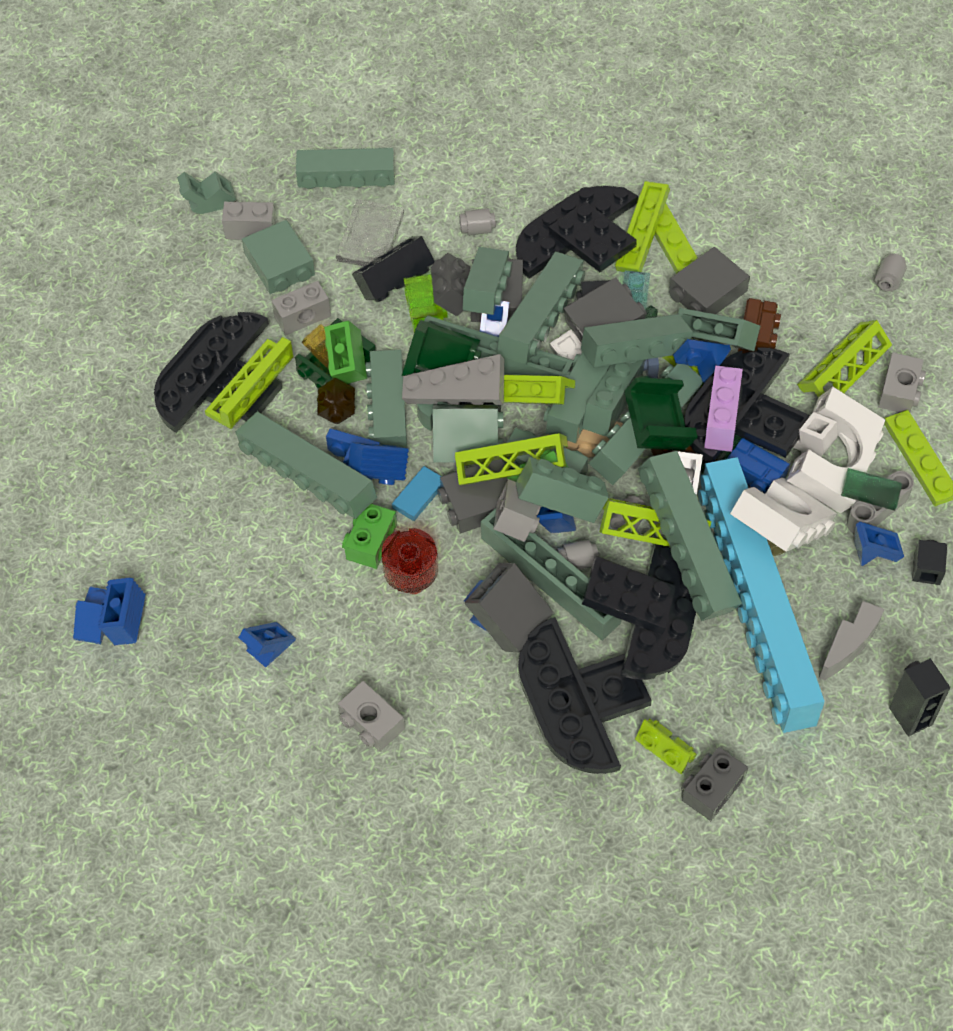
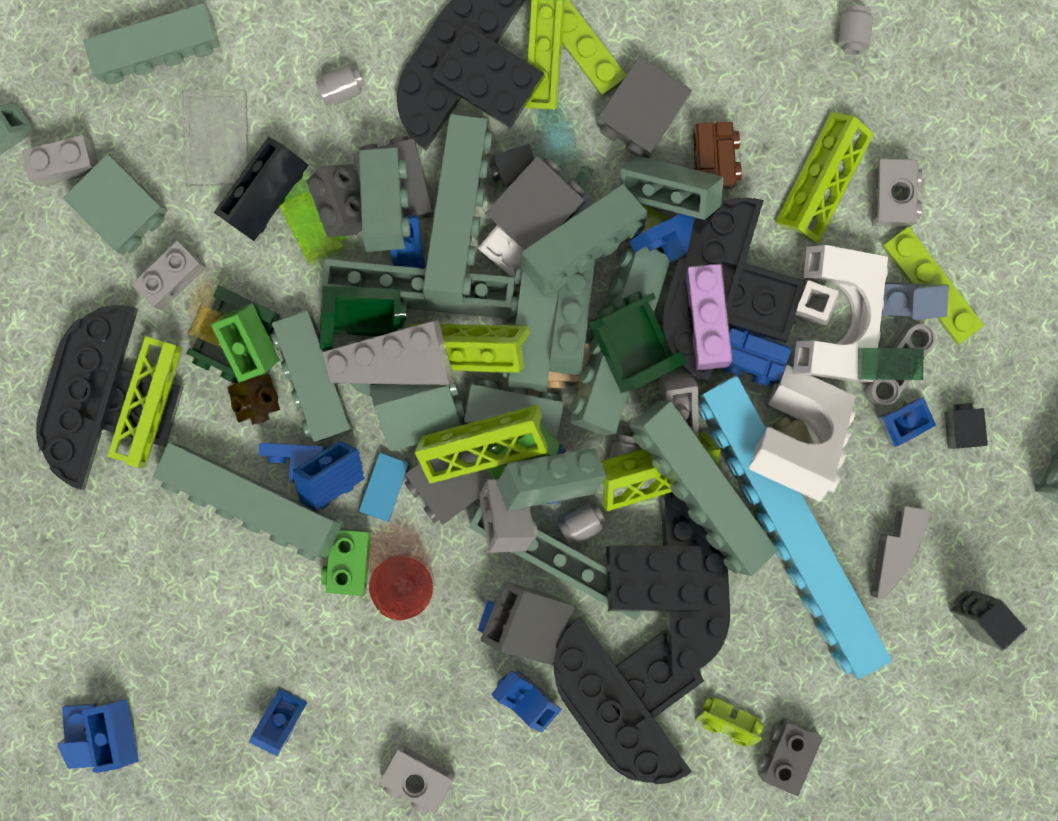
camera: 15 degrees left, 30 degrees up
(486, 674) = (526, 700): none -> blue brick
(906, 457) = (915, 300): none -> sand blue slope

